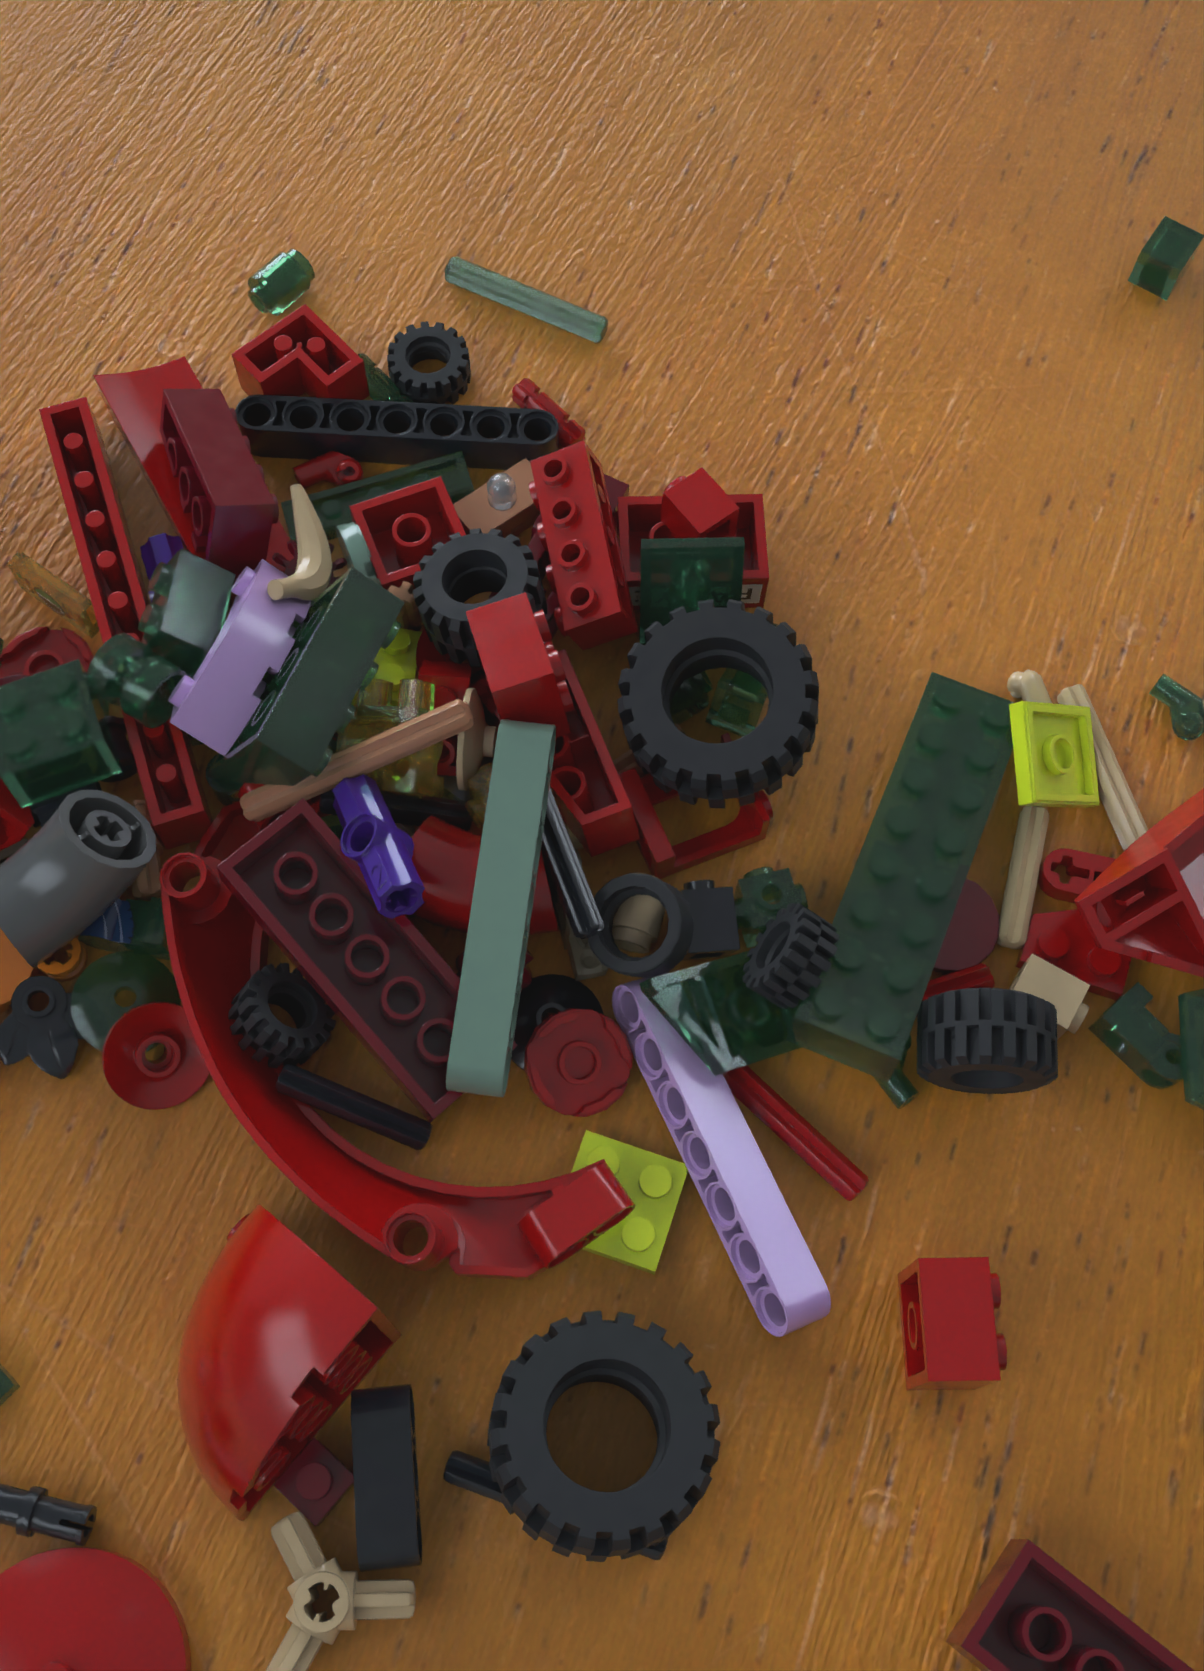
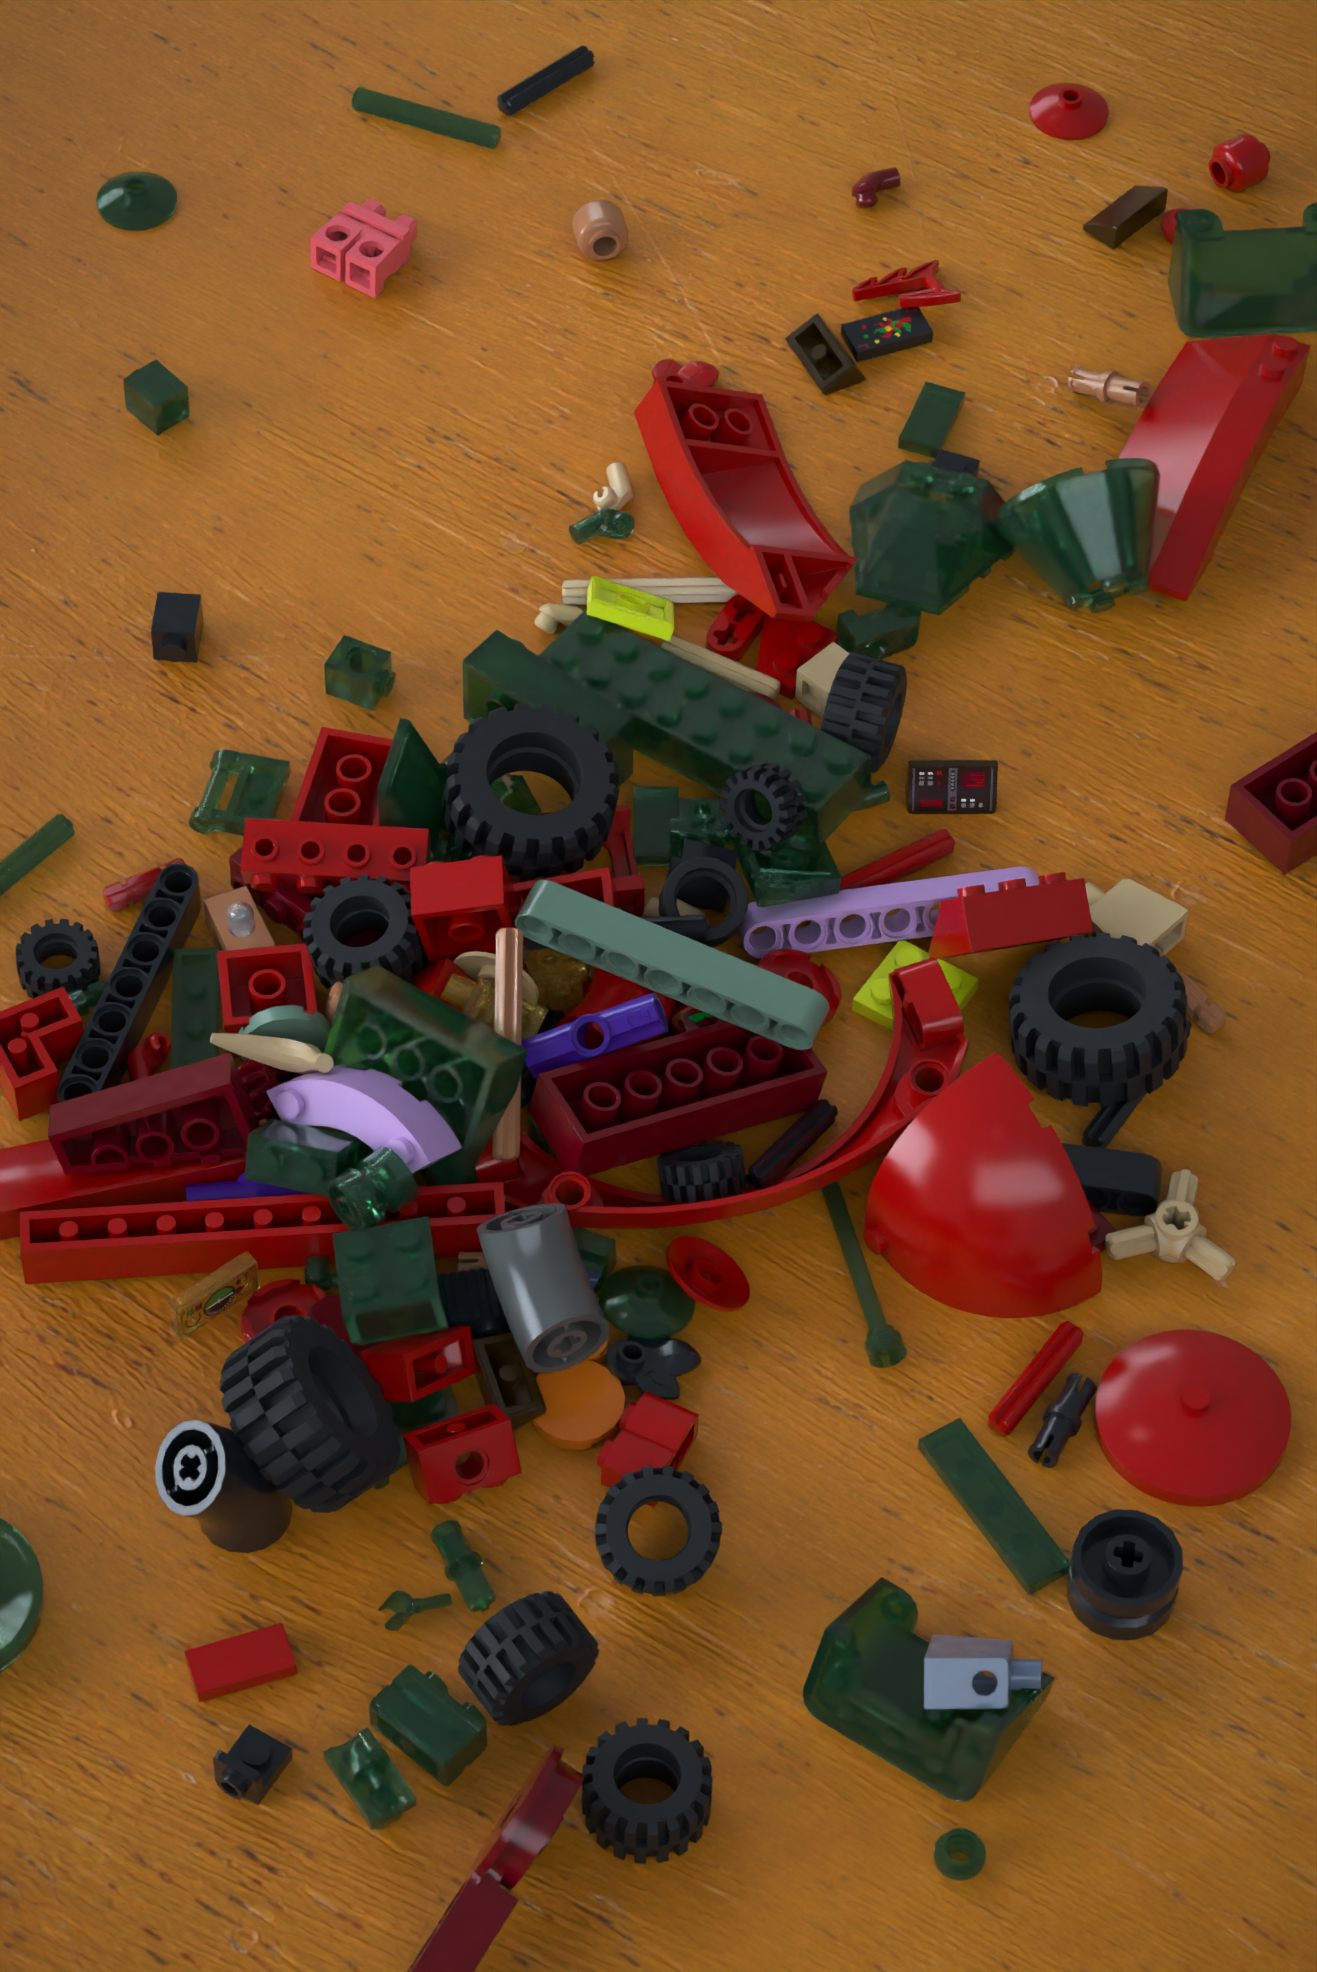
camera: 75 degrees left, 15 degrees down
(90, 1466) = (1035, 1378): none -> red axle
(107, 1272) = (883, 1342): none -> clear green piece
(660, 468) = (254, 796): none -> clear green plate
(698, 508) = (337, 765): red brick -> none
(705, 1295) = (1011, 916): none -> red slope
(706, 1547) = (1210, 1015): none -> nougat axle
(787, 1443) = (1136, 913): none -> tan torso
(798, 850) = (652, 825): none -> clear green tile
(868, 709) = (508, 674): none -> clear green brick
(873, 352) = (177, 627): none -> black brick
(878, 507) = (359, 673): none -> clear green brick
(935, 1177) = (951, 786): none -> slope
(950, 1324) = (1069, 798): red brick -> none

